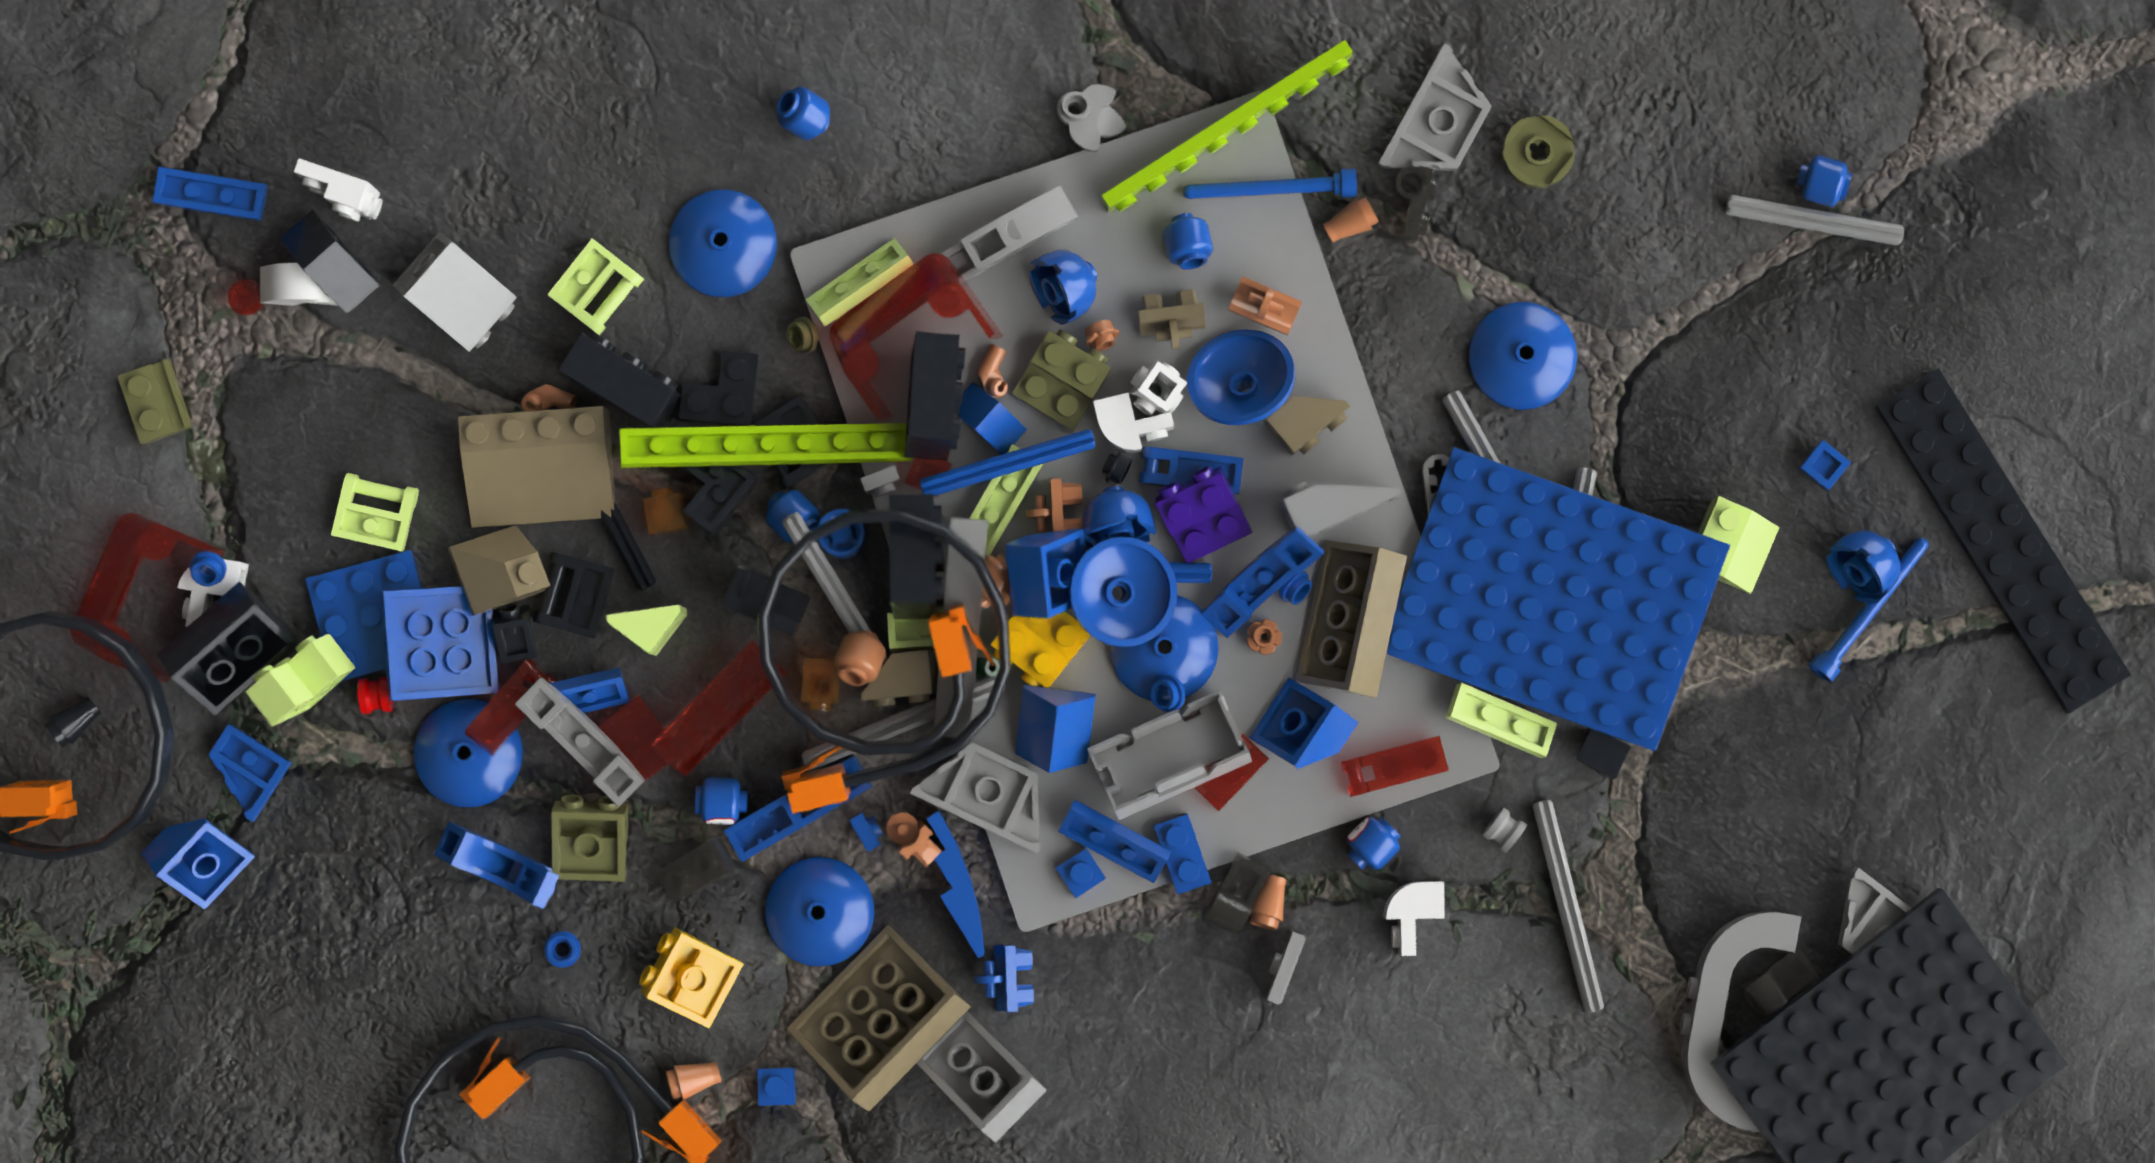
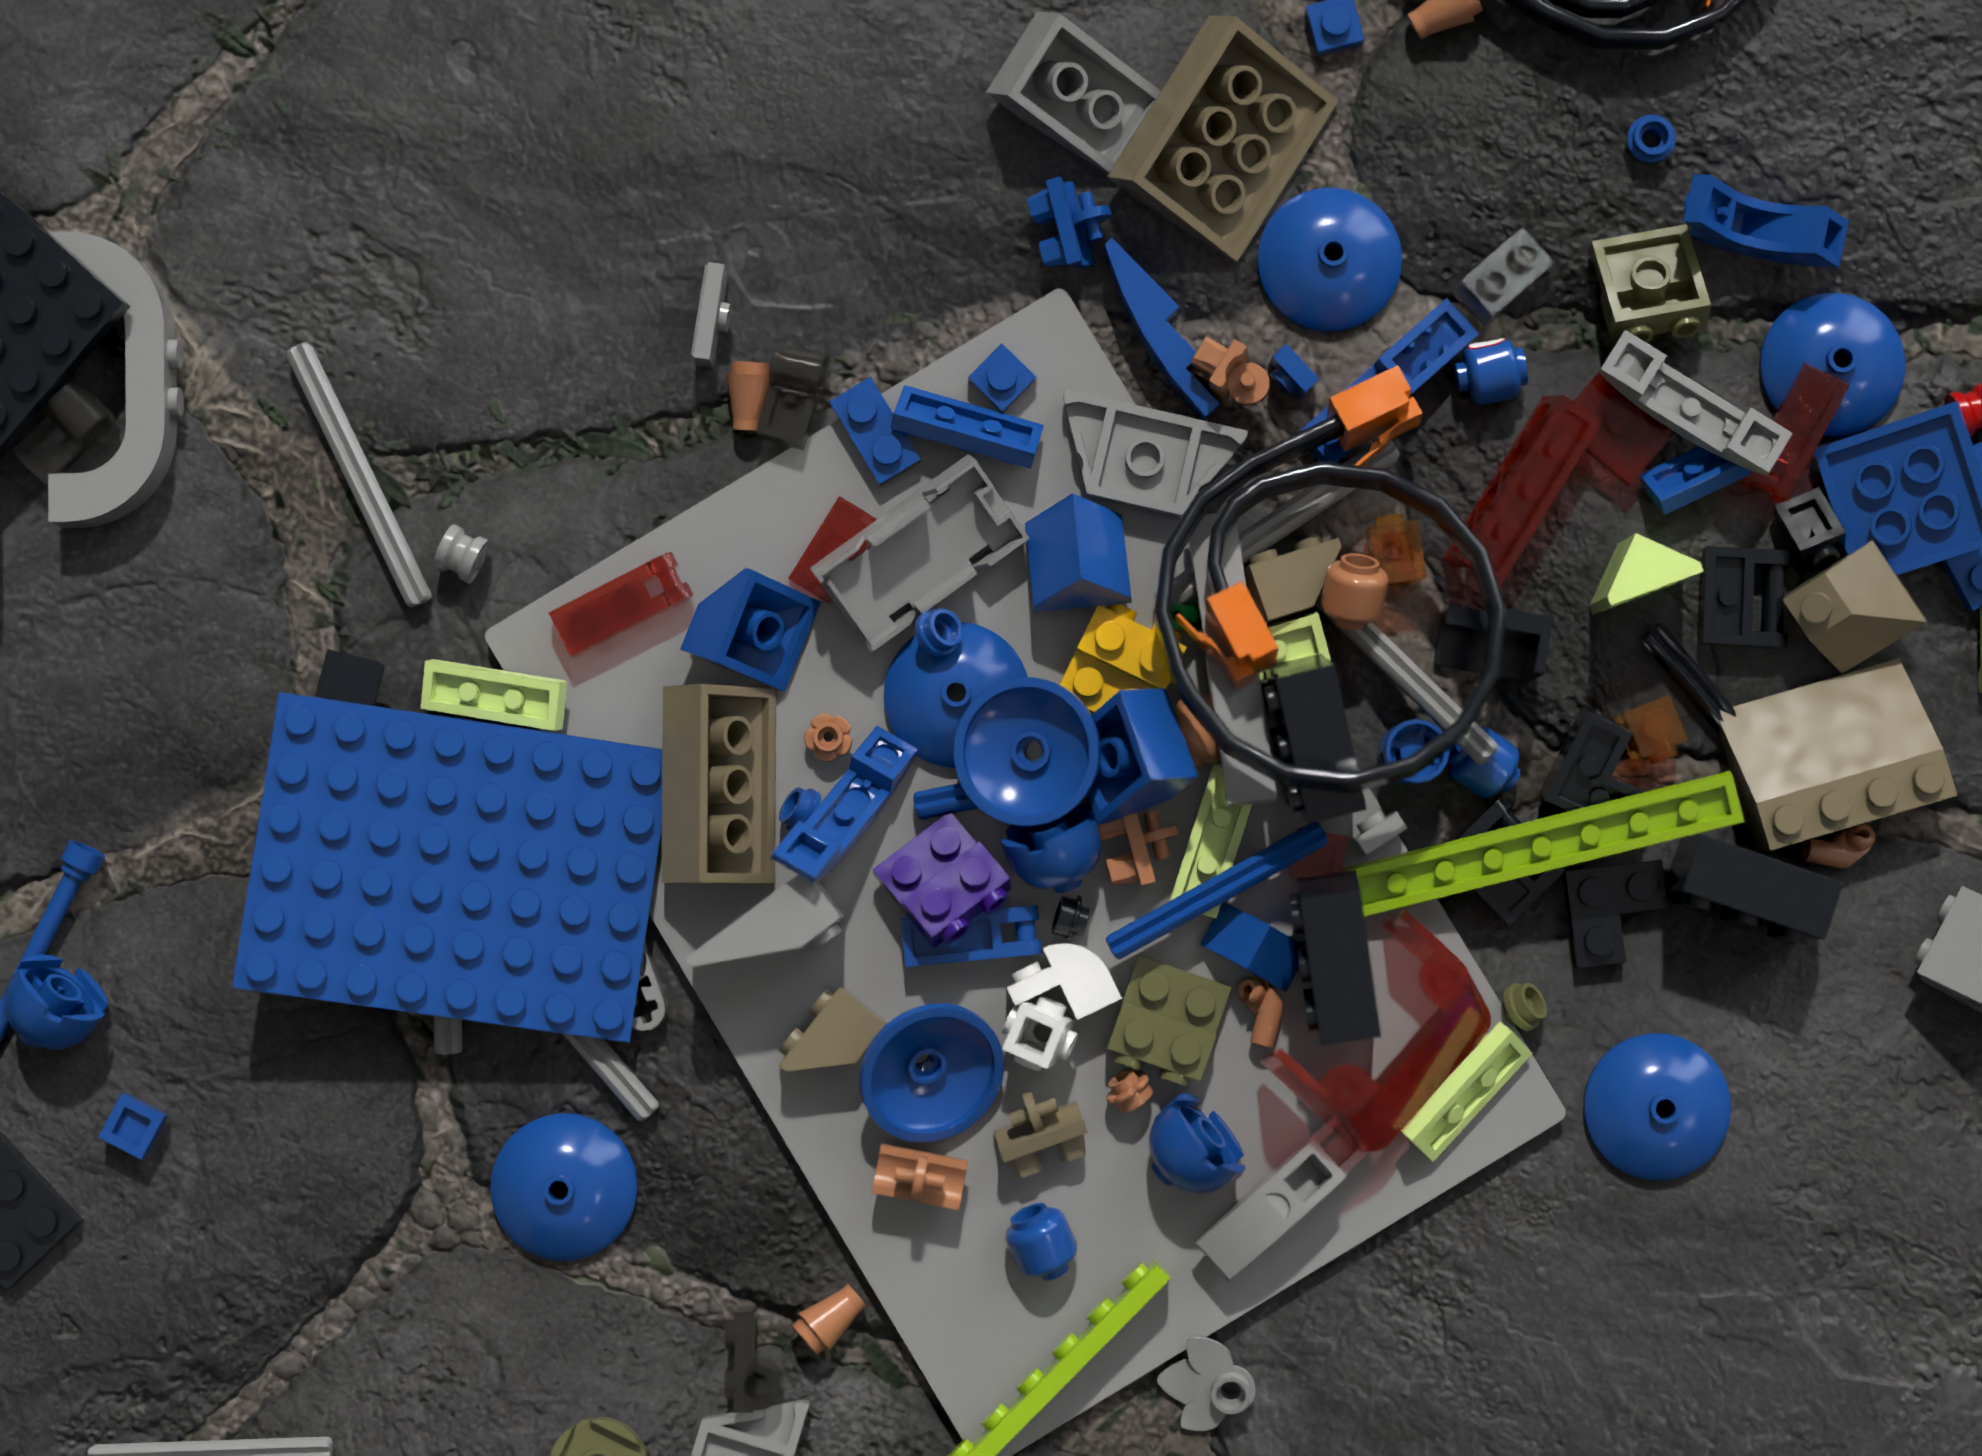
camera: 175 degrees right, 0 degrees up
(585, 280) = (1829, 1015): yellowish green plate -> none
(690, 977) = (1479, 136): yellow plate -> none
(803, 113) = (1592, 1304): blue head -> none
(1341, 183) = (853, 1365): blue piece -> none
(1373, 843) = (629, 499): blue head -> none
(1409, 903) = (560, 434): white brick -> none
(1748, 537) = (227, 1013): yellowish green slope -> none

